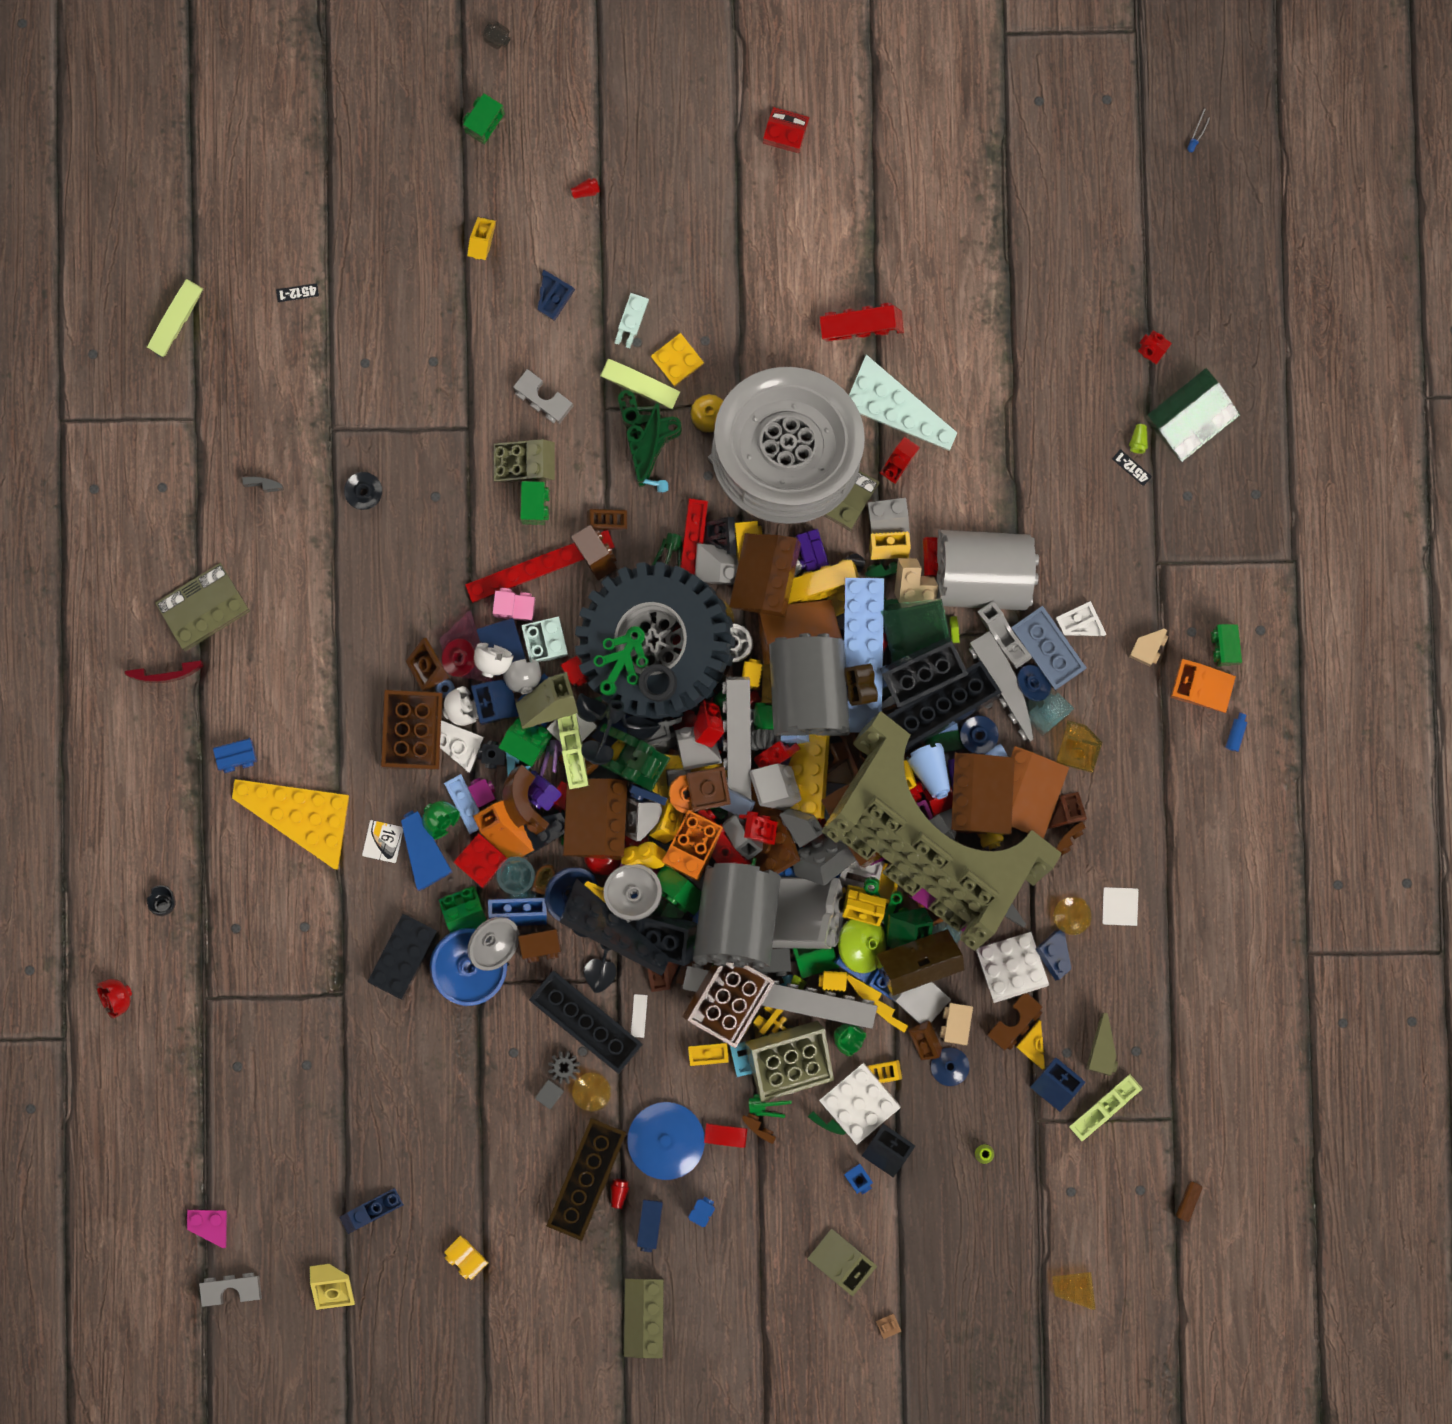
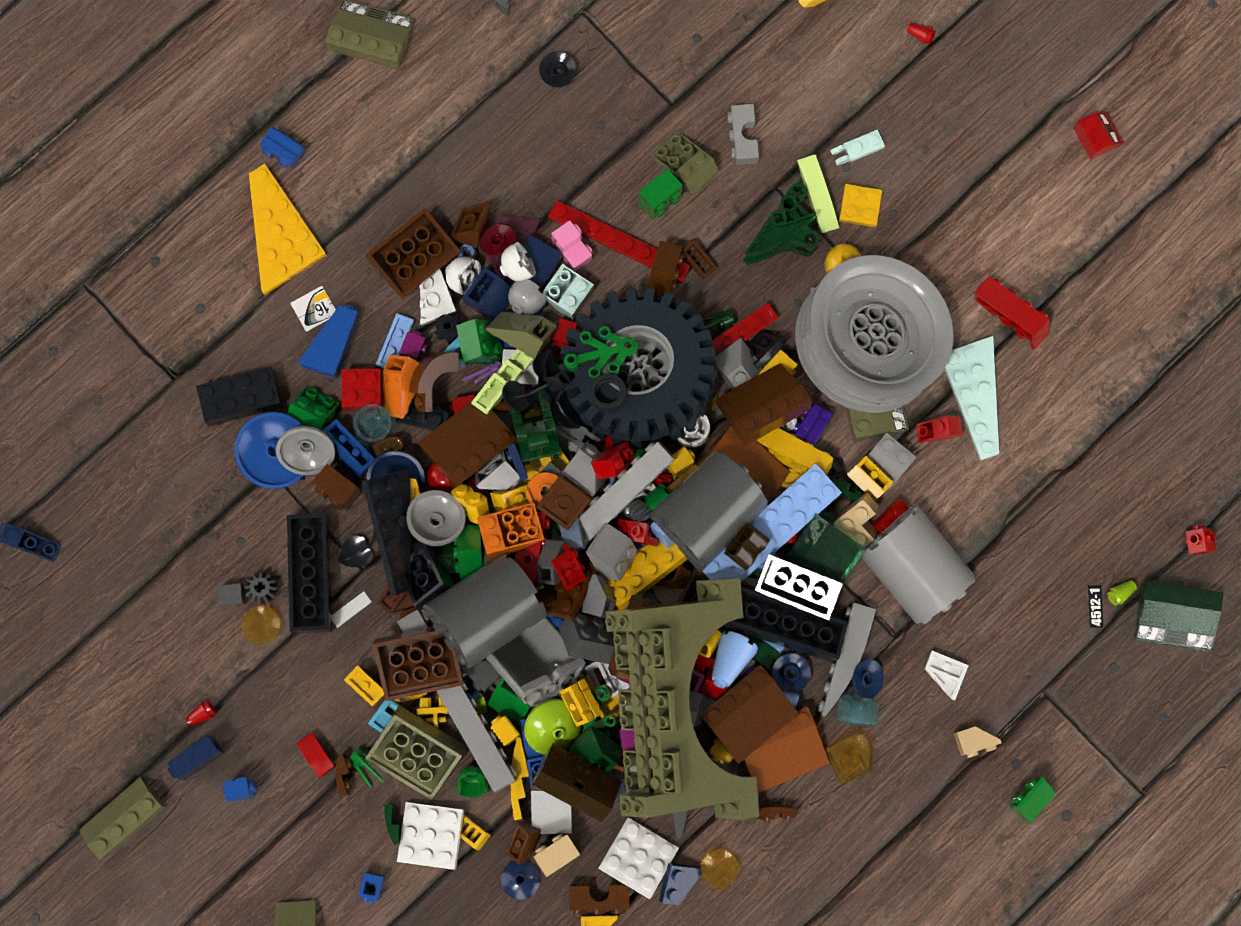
camera: 40 degrees right, 5 degrees down
(114, 996) = (27, 217): red cylinder -> none
(161, 900) = (127, 189): black hair -> none
(188, 669) = (314, 61): dark red slope -> none
(438, 818) = (366, 332): green cylinder -> none
(465, 1257) = (51, 643): yellow brick -> none
(542, 793) = (452, 386): dark purple brick -> none
(553, 295) = (823, 78): dark blue wing -> none
(586, 1179) = (189, 679): dark brown brick -> none
(662, 485) = (759, 275): medium azure hand -> none
(666, 1141) = (272, 714): blue dish -> none
(888, 1150) = (413, 890): black slope -> none
(954, 629) = (852, 583): lime tile -> none
(1006, 639) = (881, 627): light grey arch -> none
(1048, 648) = (904, 666): sand blue plate -> none
(1068, 811) = (796, 793): copper slope -> none
(1120, 906) = (760, 899): white sticker -> none
(1202, 686) = (984, 809): orange slope -> none
(1236, 734) = (973, 868): blue cylinder -> none

